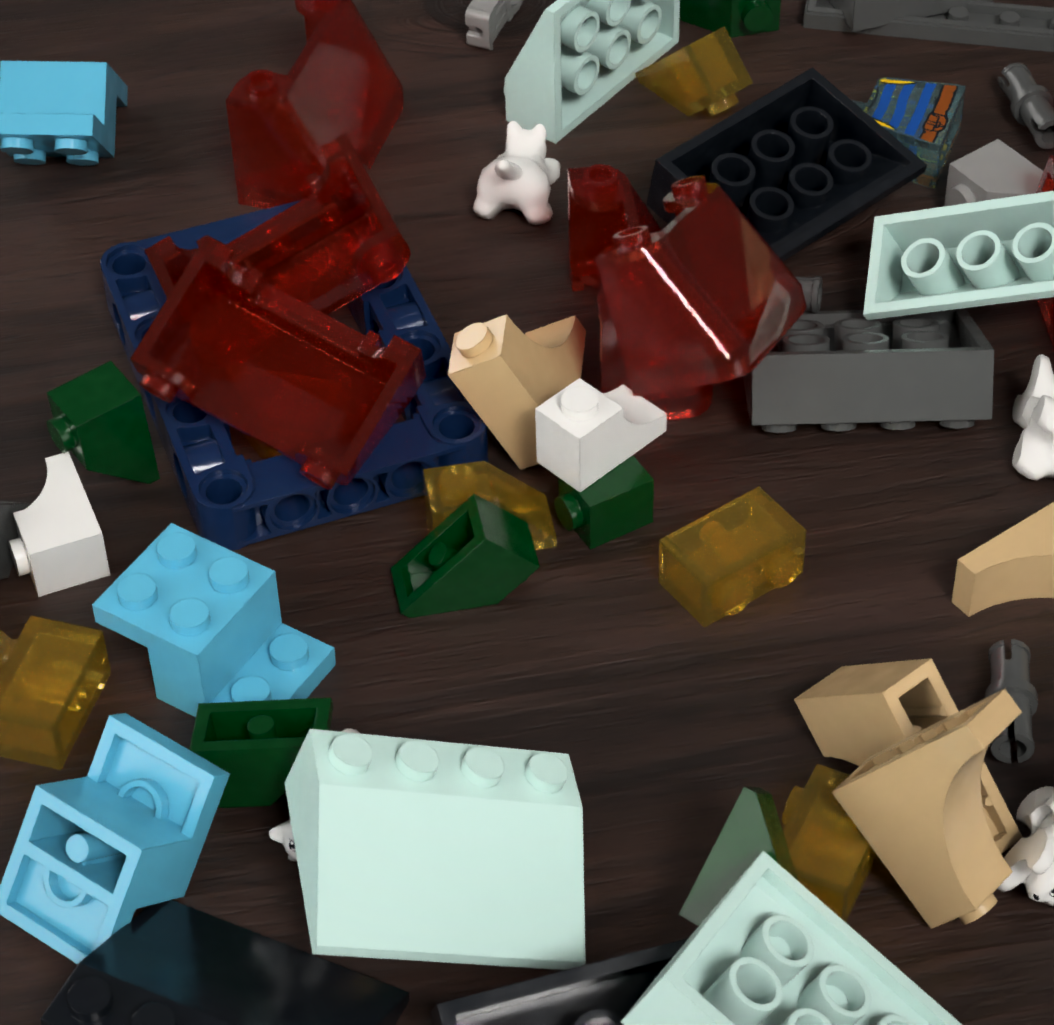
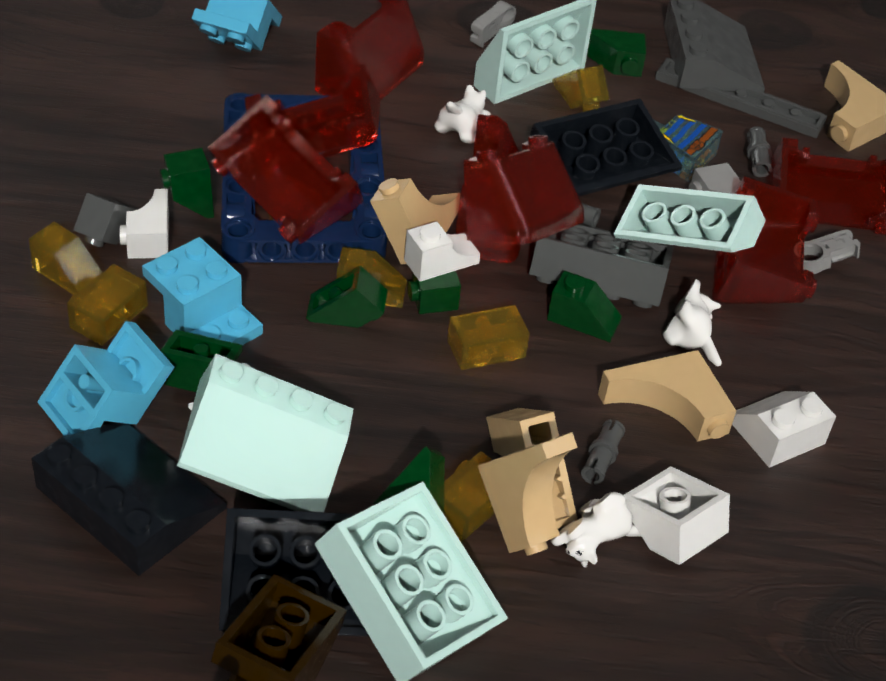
camera: 10 degrees right, 0 degrees up
(868, 457) = (583, 307): none -> dark green slope

